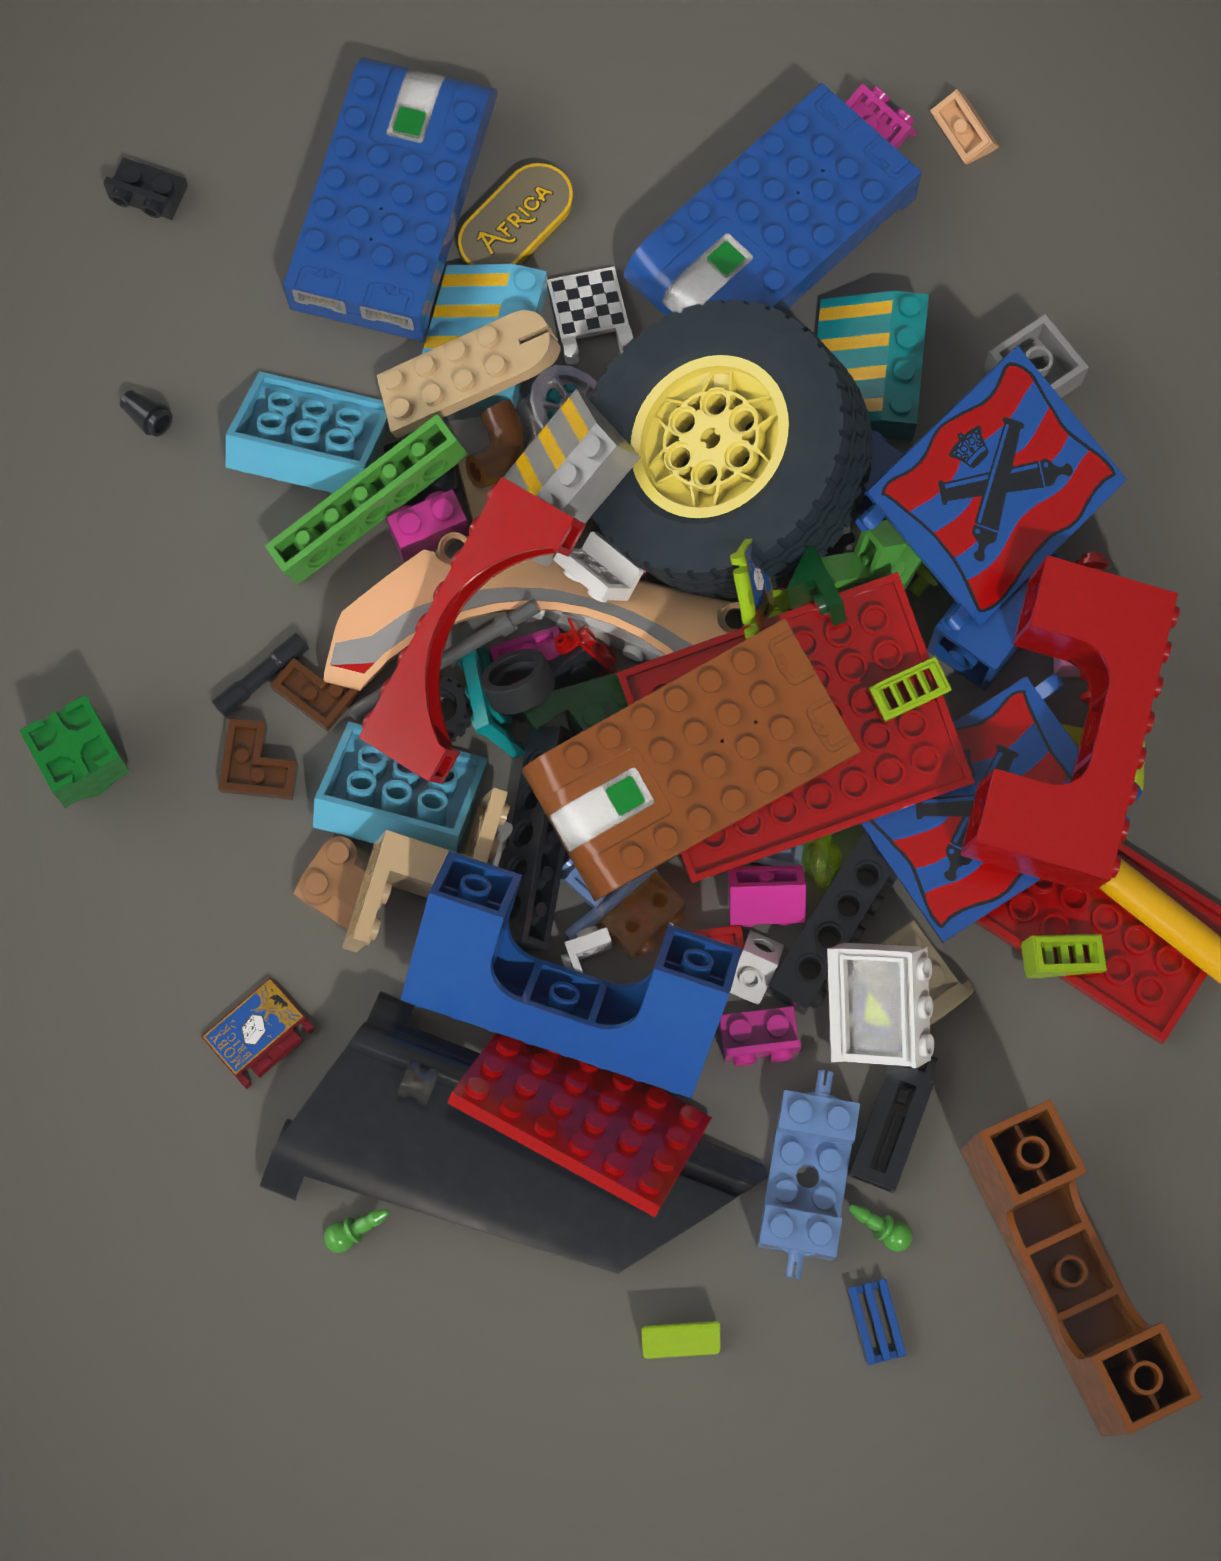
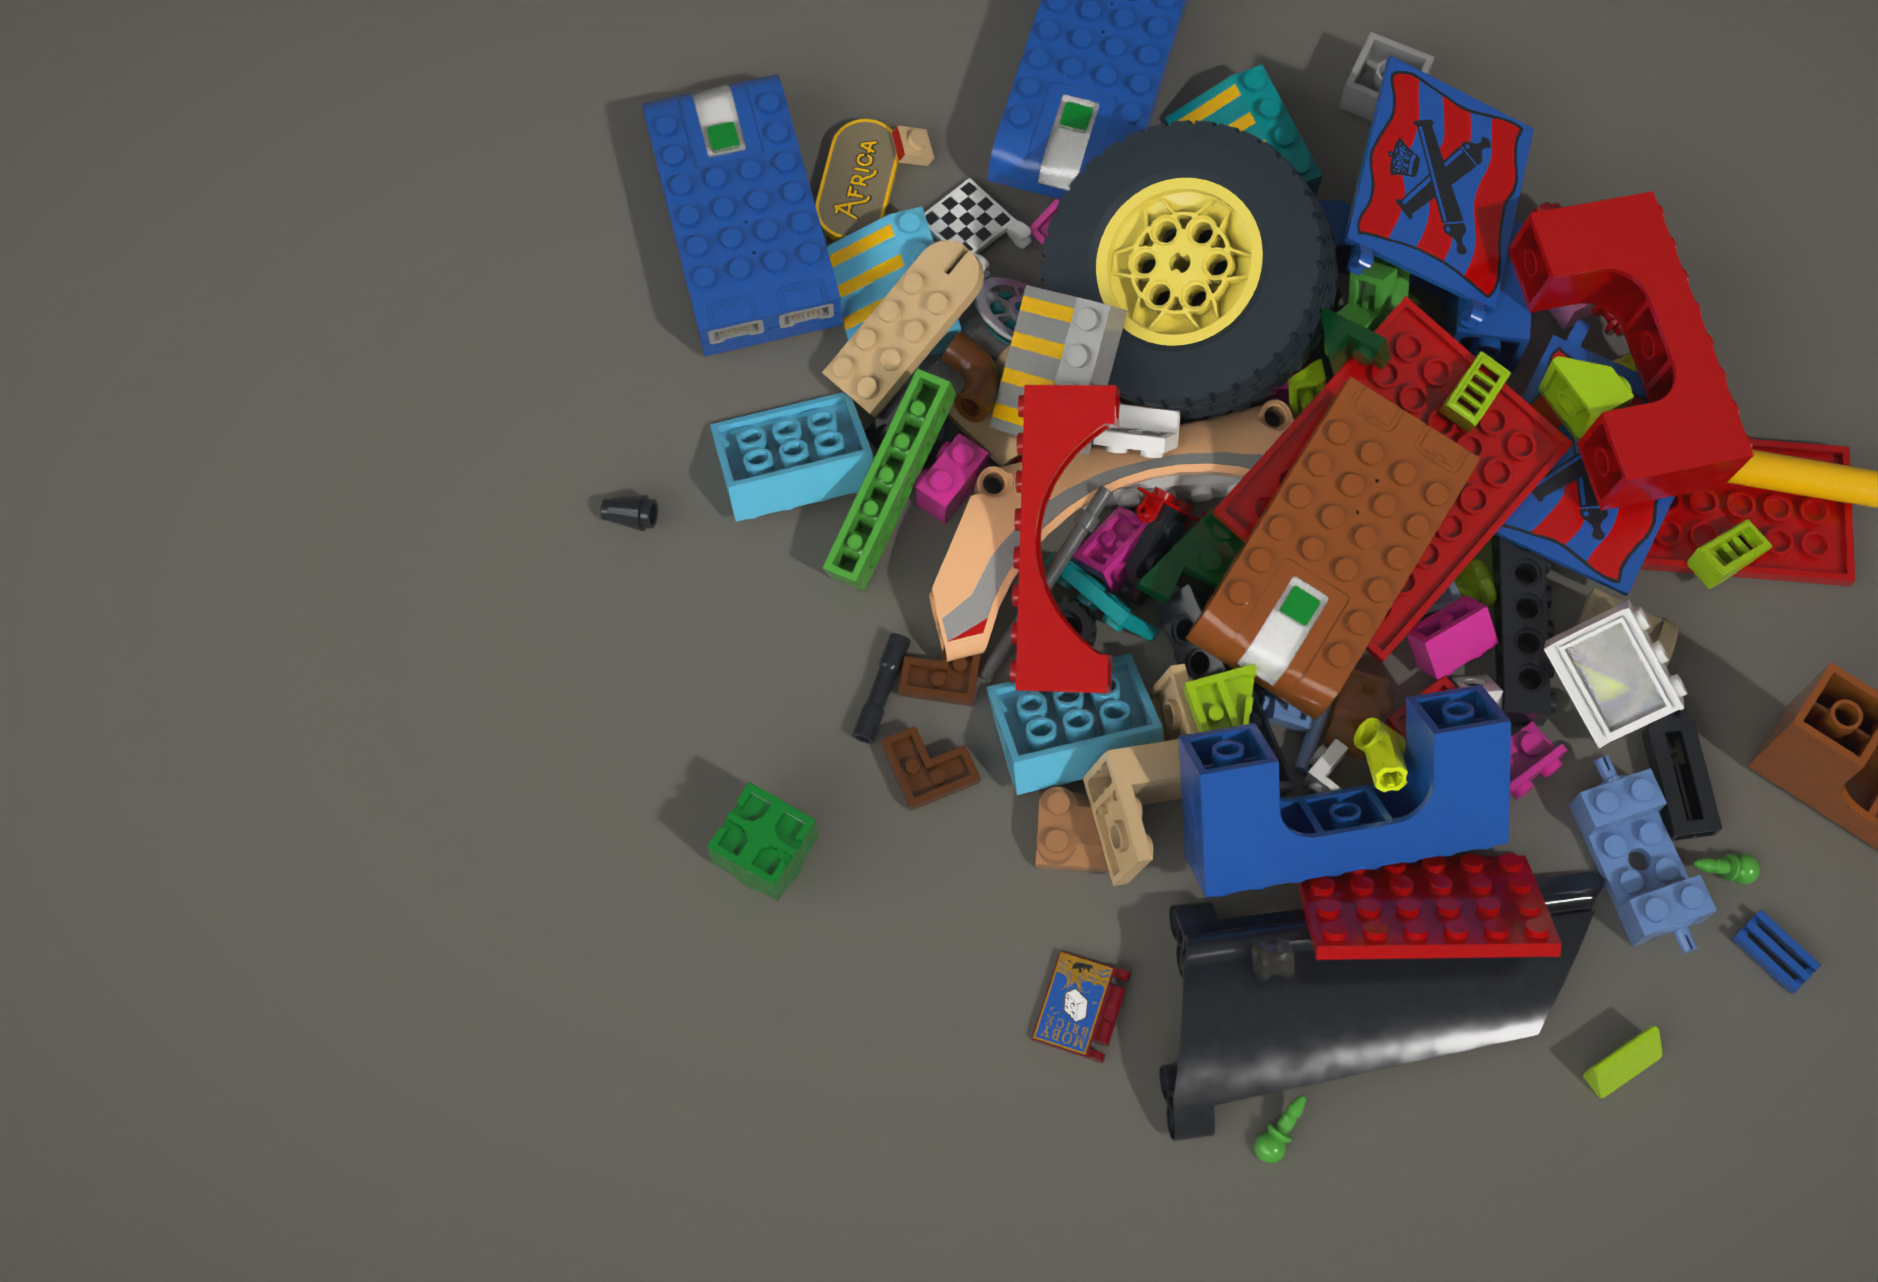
camera: 30 degrees left, 5 degrees down
(146, 188) = (504, 317): black bracket -> none
(516, 840) = (1221, 698): none -> lime wing
(518, 697) = (1140, 577): black tyre -> none
(580, 212) = (912, 145): none -> tan plate
(633, 958) = (1383, 753): none -> neon yellow piece
(753, 590) = (1299, 374): piece -> none
(1008, 742) = (1582, 391): none -> lime slope

